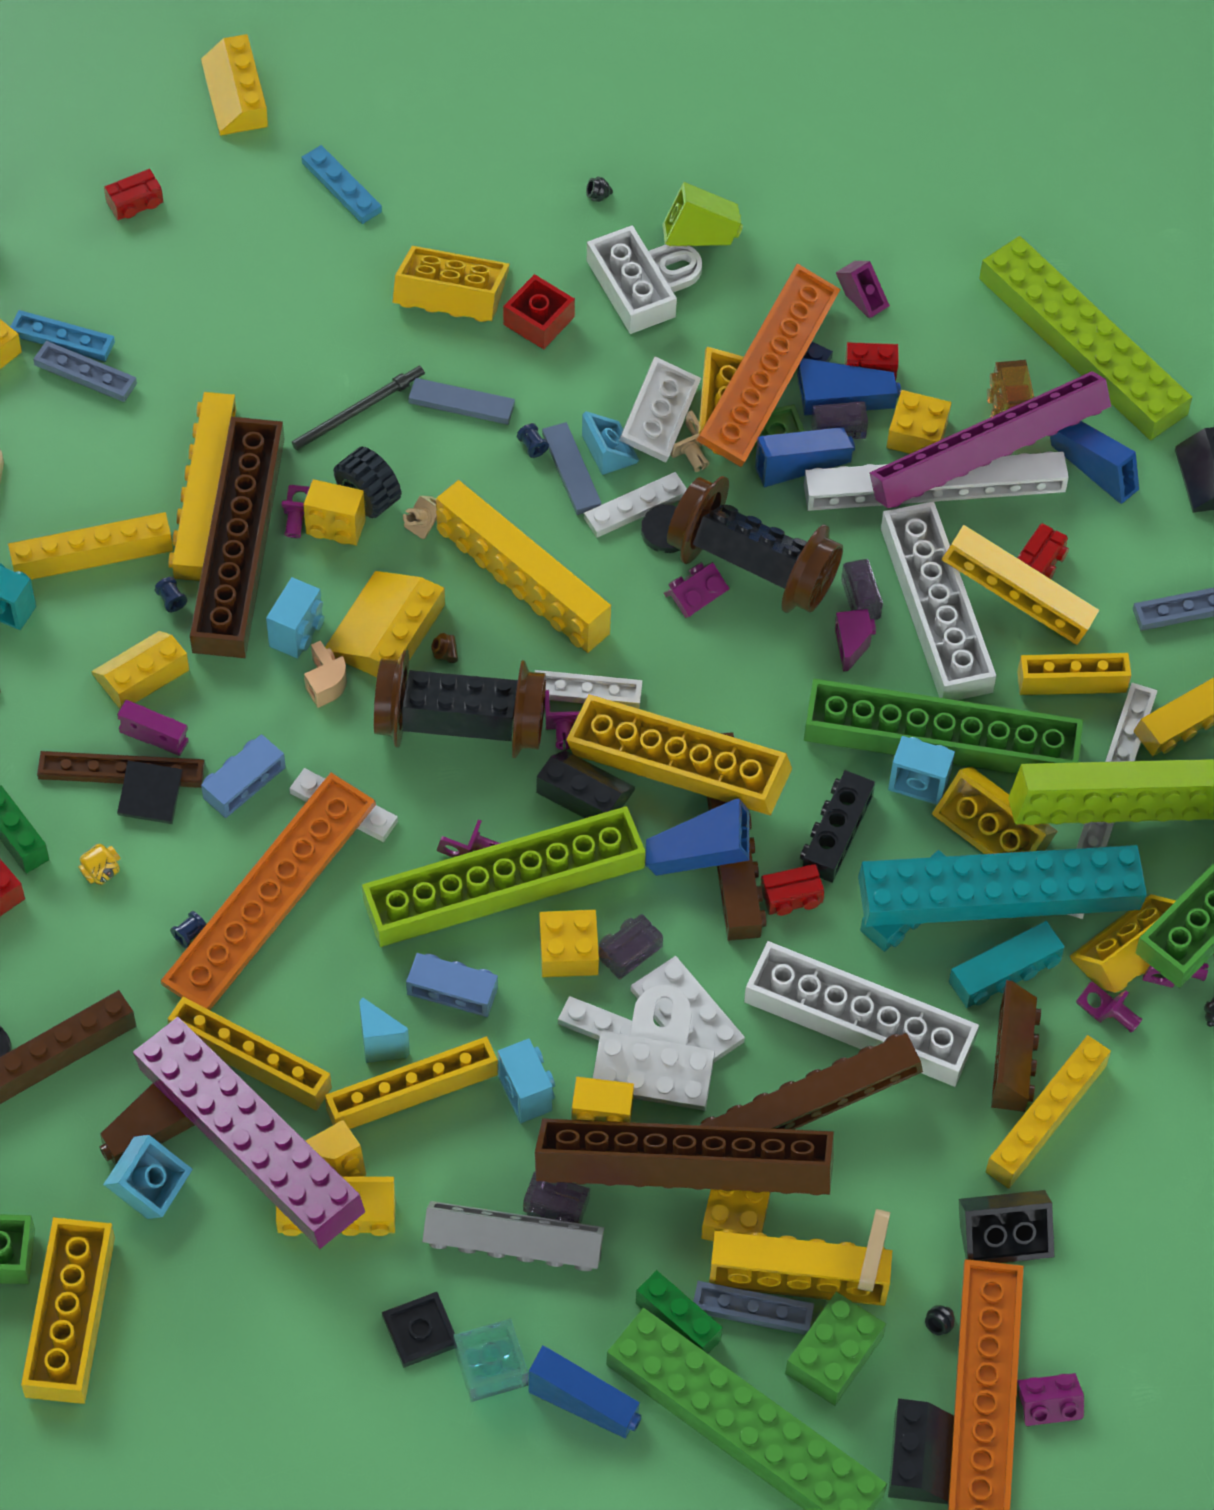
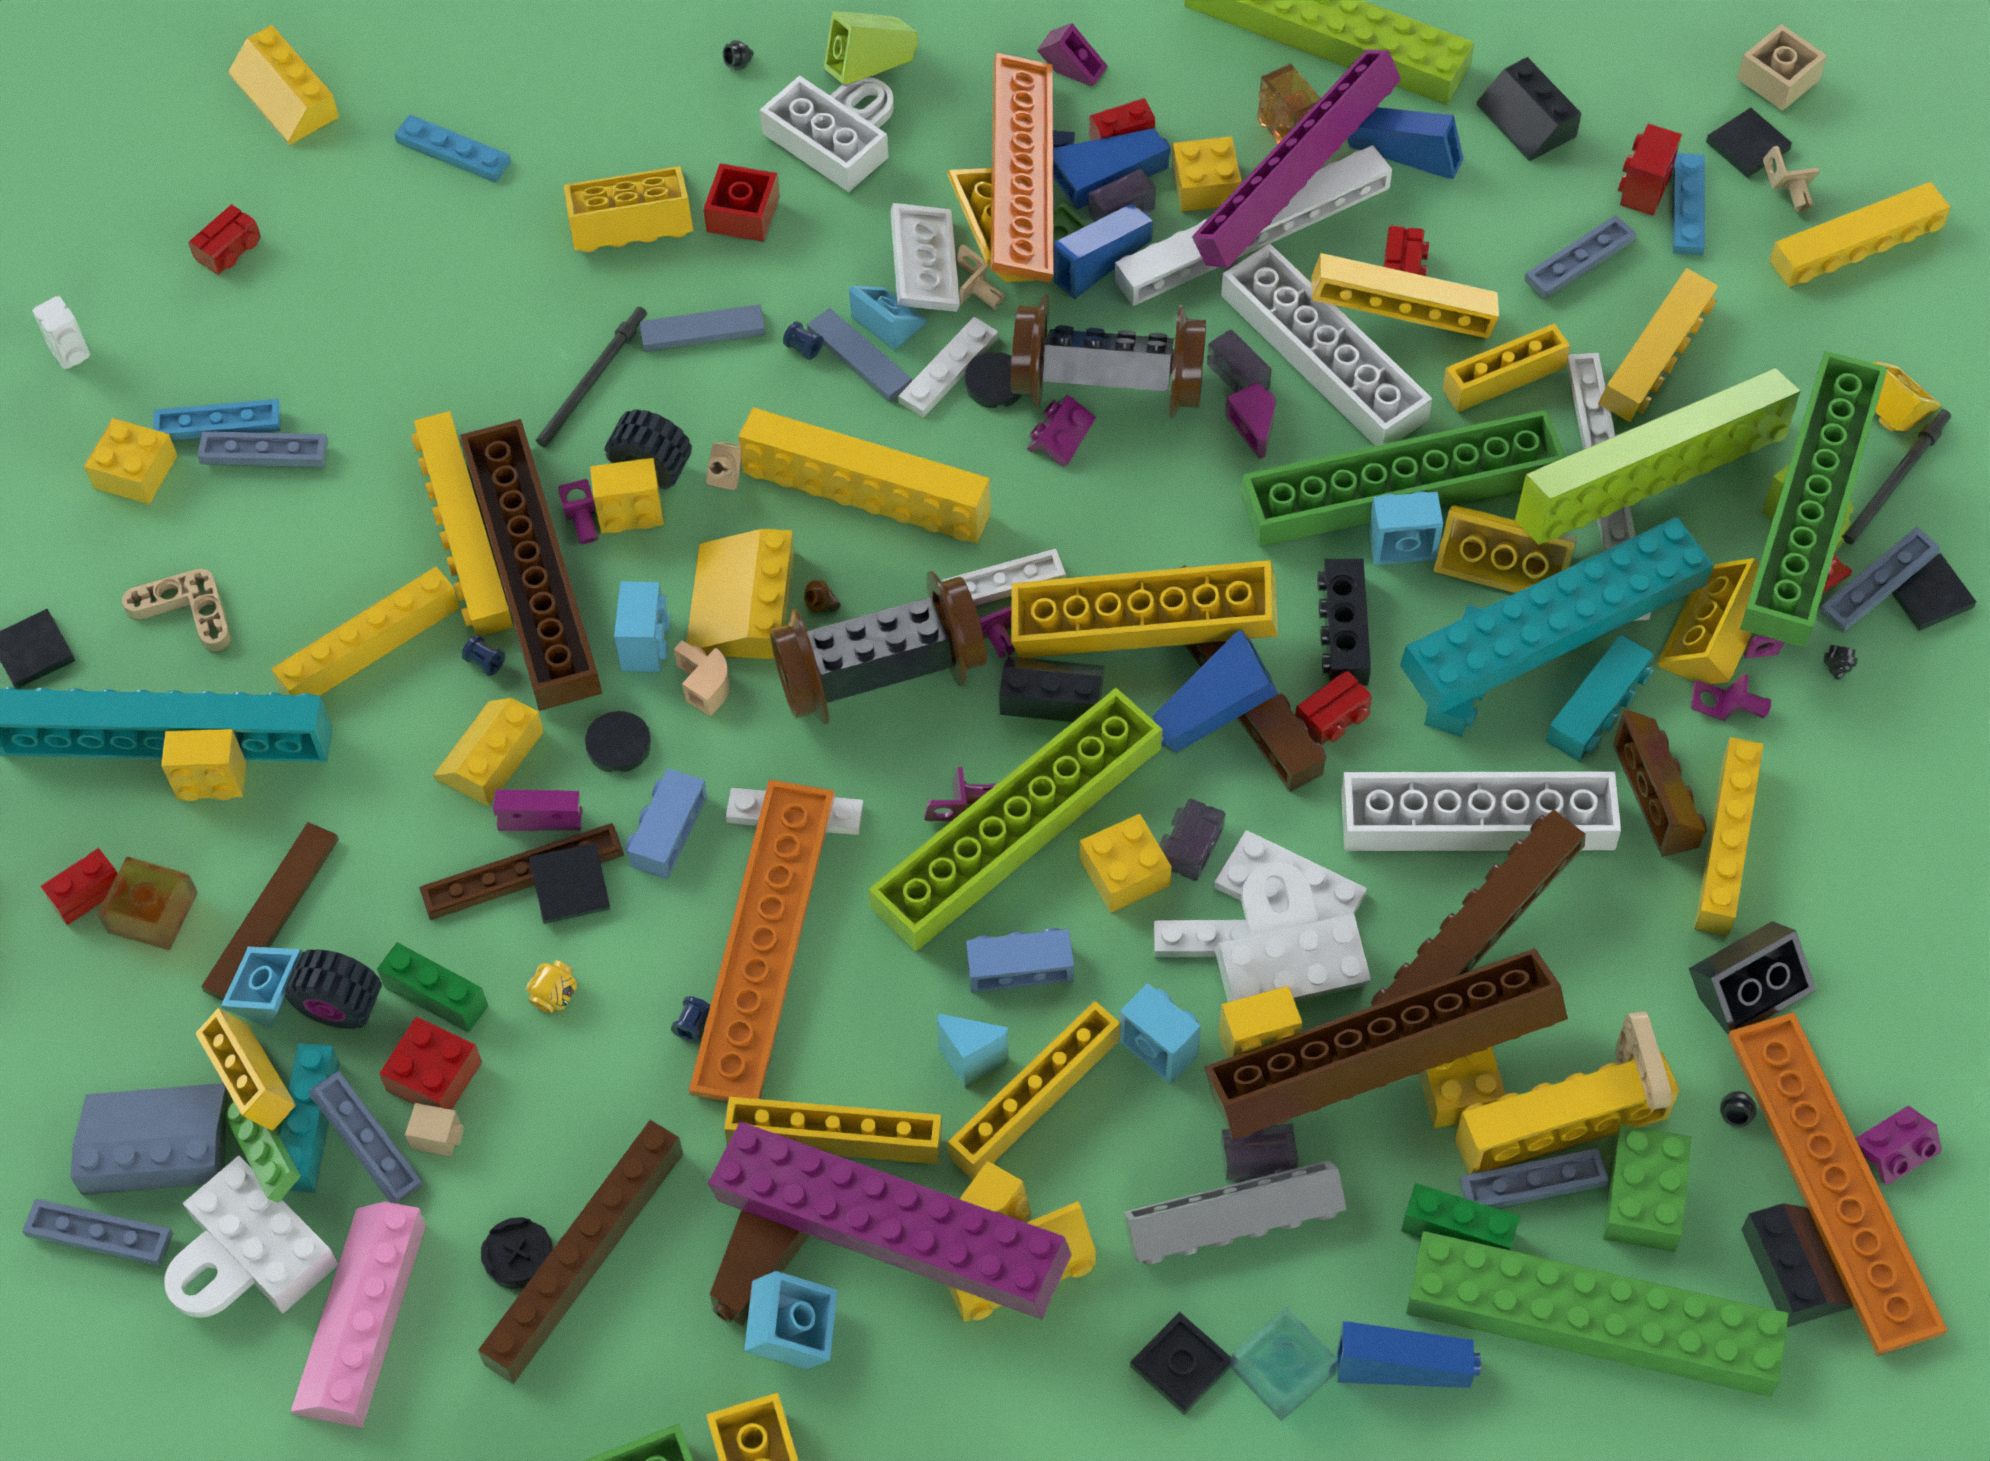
camera: 20 degrees left, 0 degrees up
(239, 699) = (618, 741): none -> black tile

